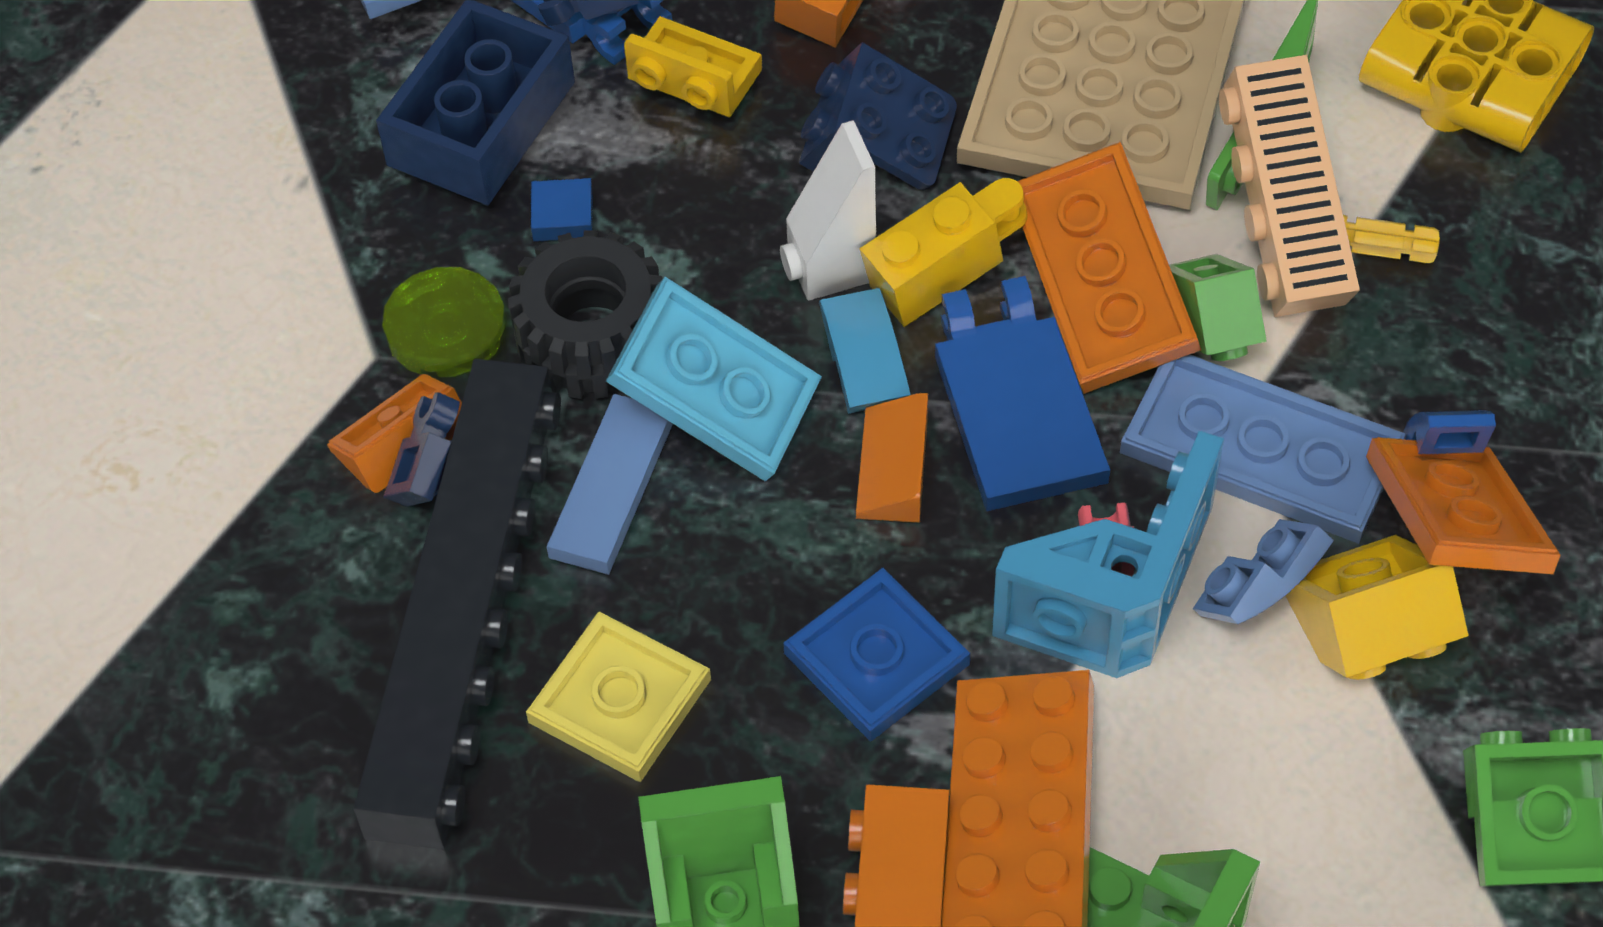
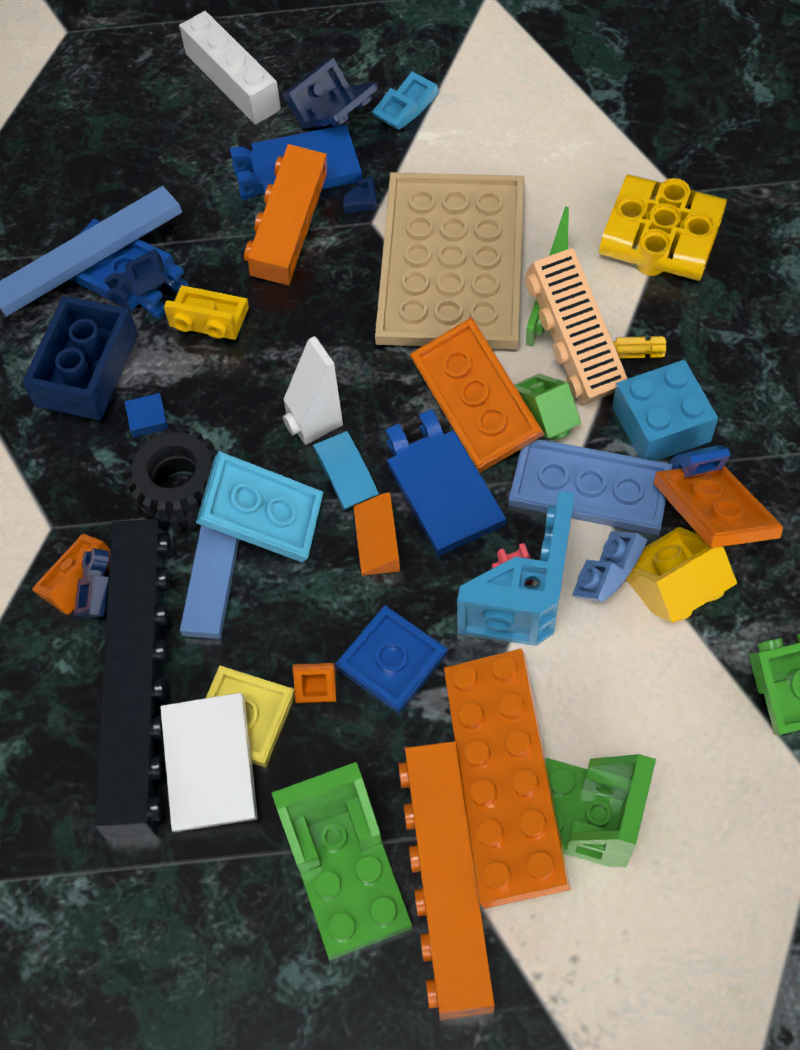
camera: 10 degrees left, 5 degrees up
(444, 321) = (88, 498): clear neon green tile -> none
(550, 752) = (208, 762): none -> white tile
(745, 665) = (314, 682): none -> orange slope
(895, 111) = (330, 317): dark blue bracket -> none
(943, 246) = (379, 399): yellow brick -> none
(1409, 346) = (664, 411): none -> dark azure brick

